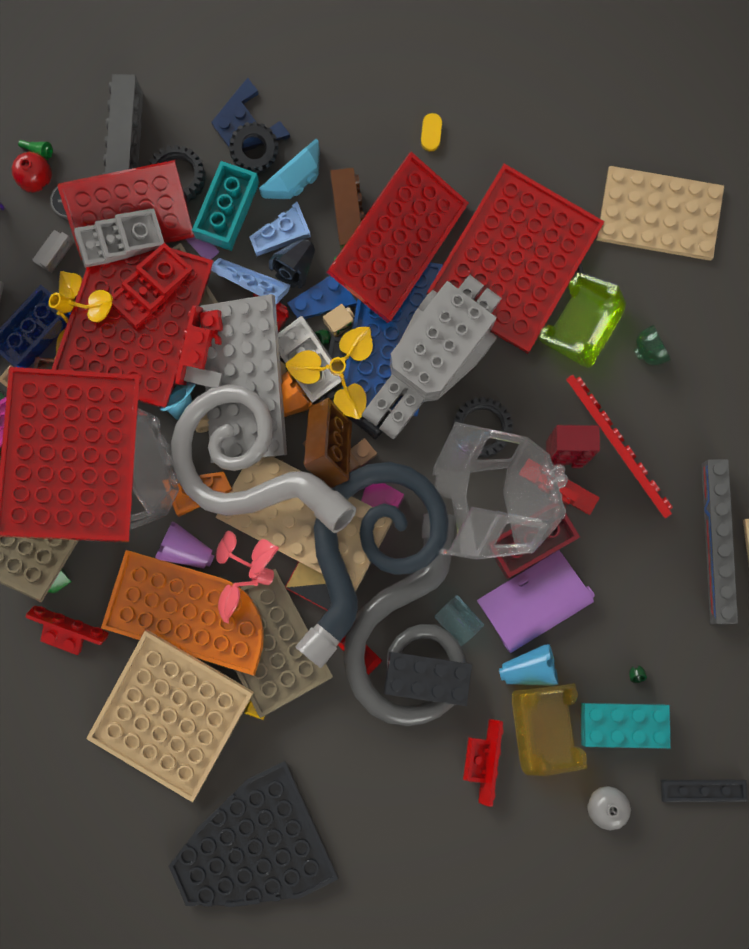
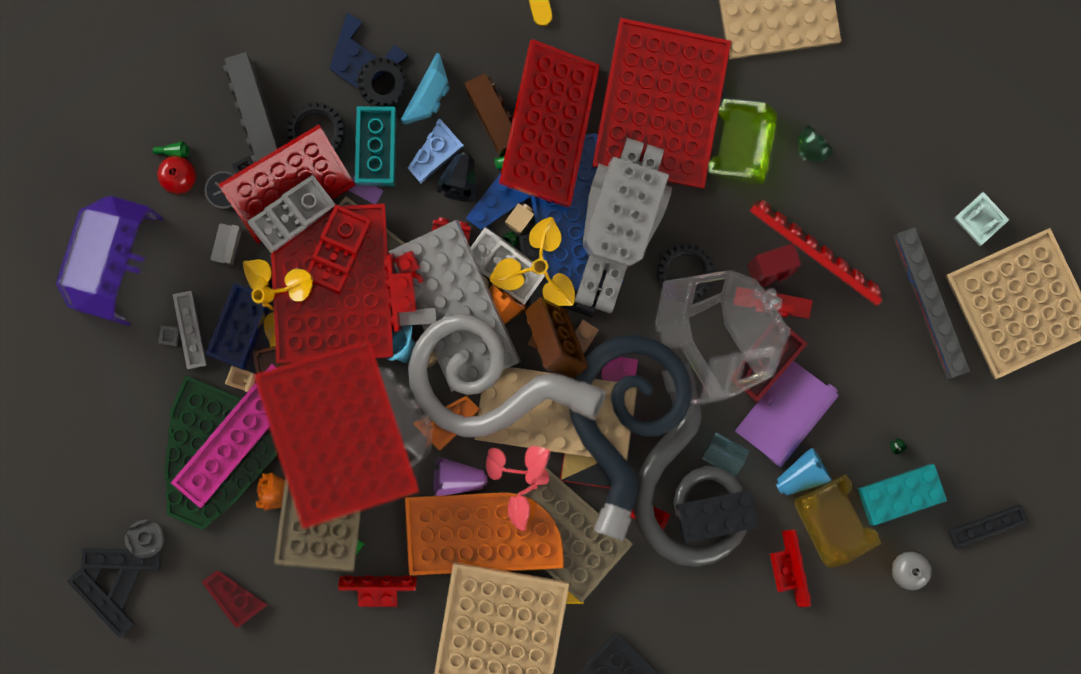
camera: 30 degrees left, 5 degrees up
(250, 280) = (432, 210): light blue wing -> none

